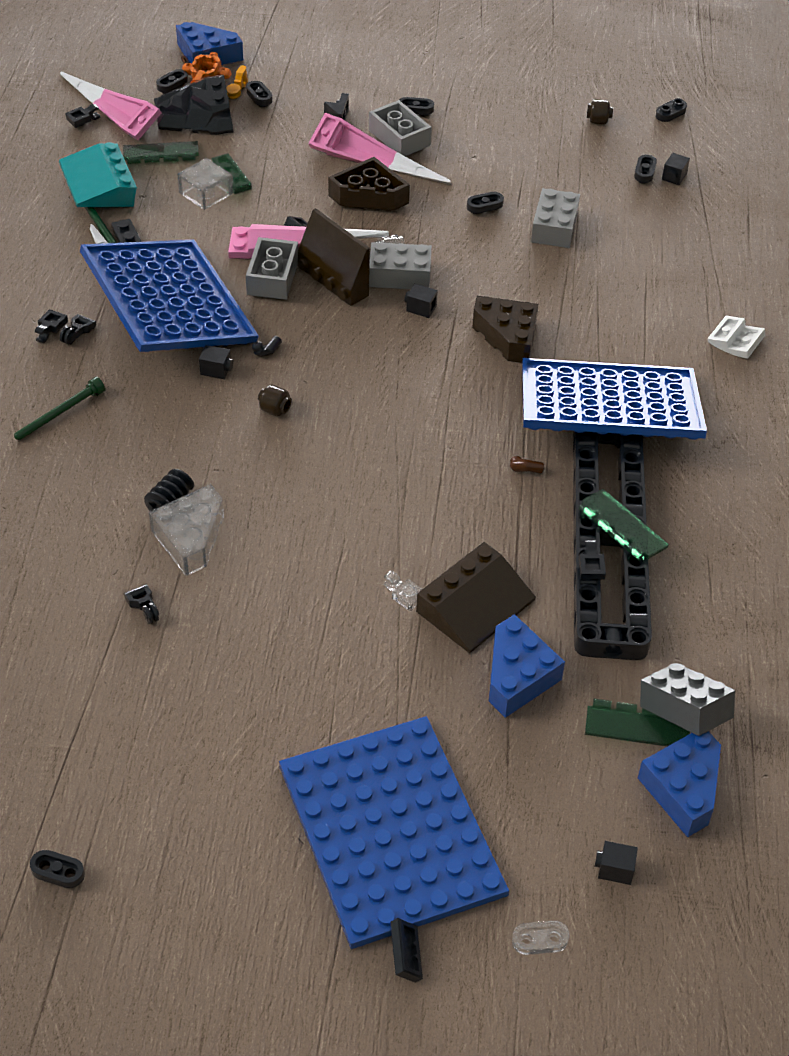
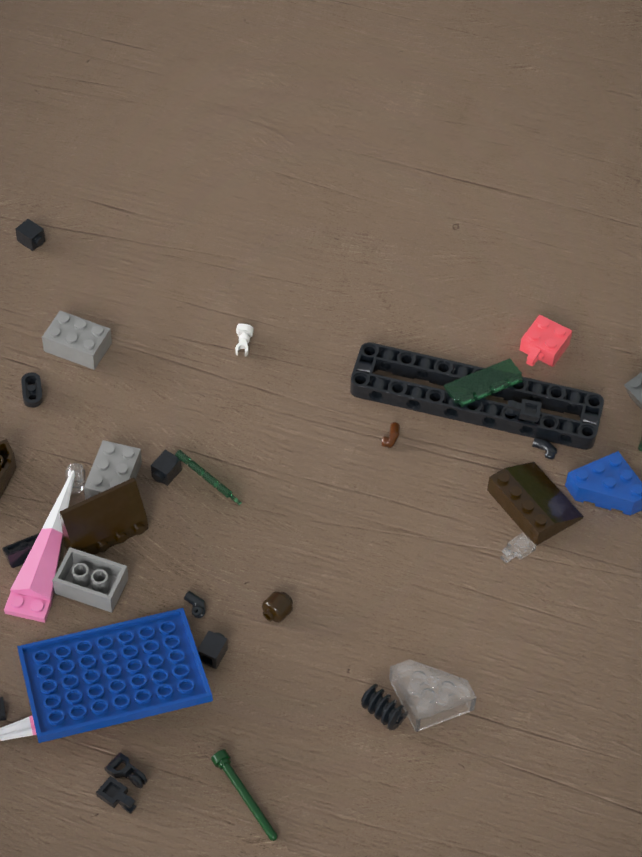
camera: 80 degrees left, 5 degrees up
(145, 604) = (519, 739): black piece -> none
(416, 327) = (206, 476): none -> clear green windscreen
(506, 325) = (221, 409): dark brown brick -> none
(558, 606) = (547, 446): none -> black arm
(600, 335) = (245, 333): none -> white piece
(611, 398) = (338, 356): plate -> none
(645, 168) = (20, 257): black plate -> none
(716, 584) = (545, 341): none -> coral hinge
(736, 337) = (266, 256): white slope -> none

